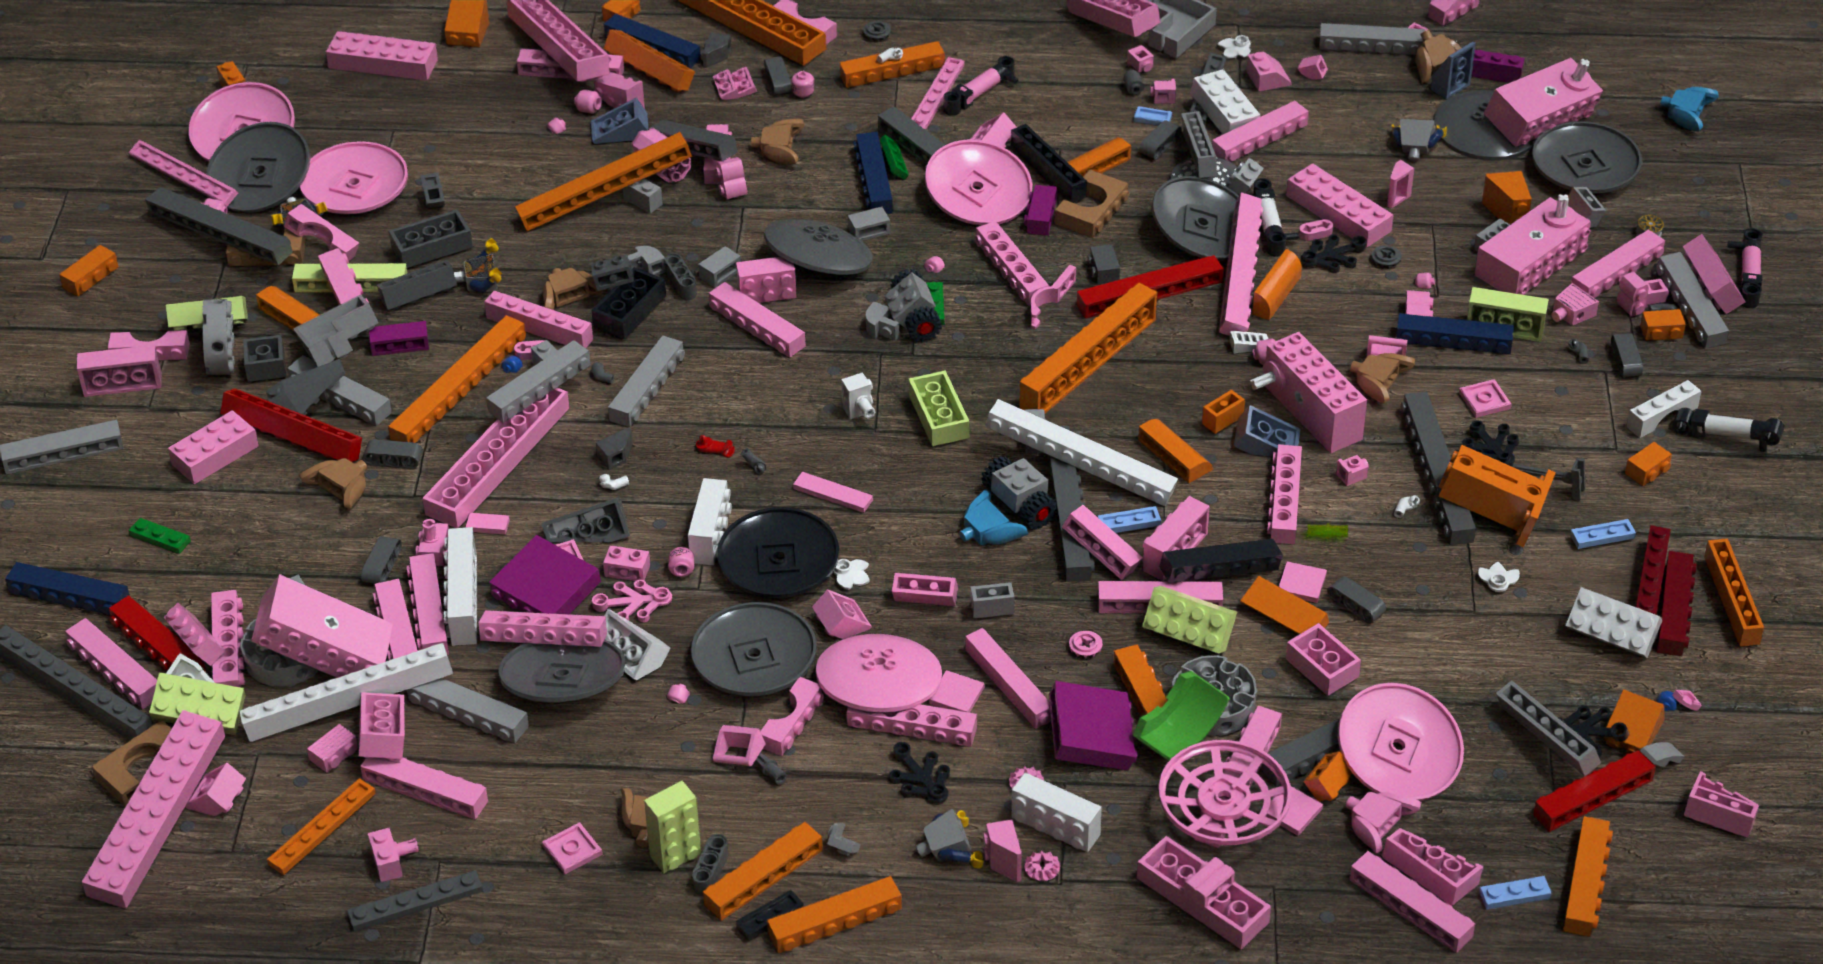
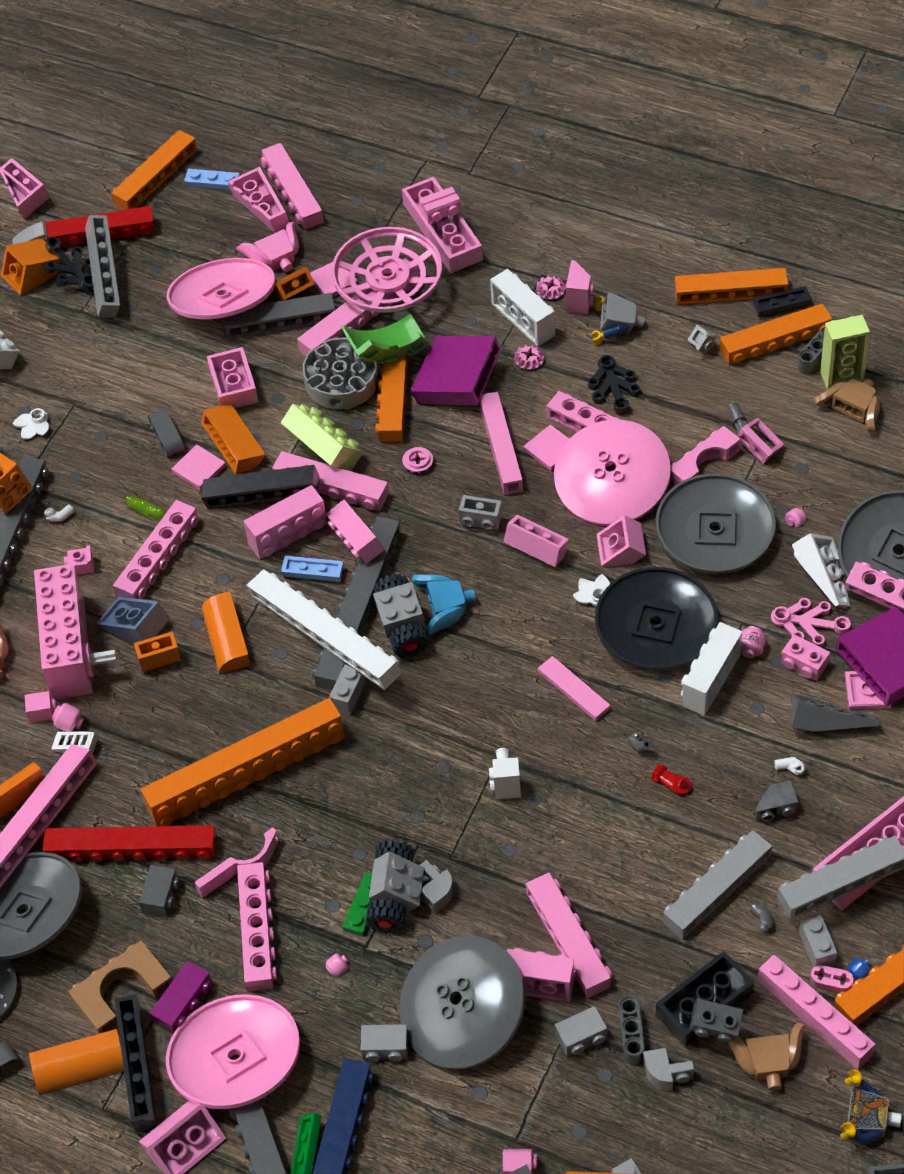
camera: 155 degrees left, 10 degrees up
(939, 408) = (428, 742): yellowish green brick -> none

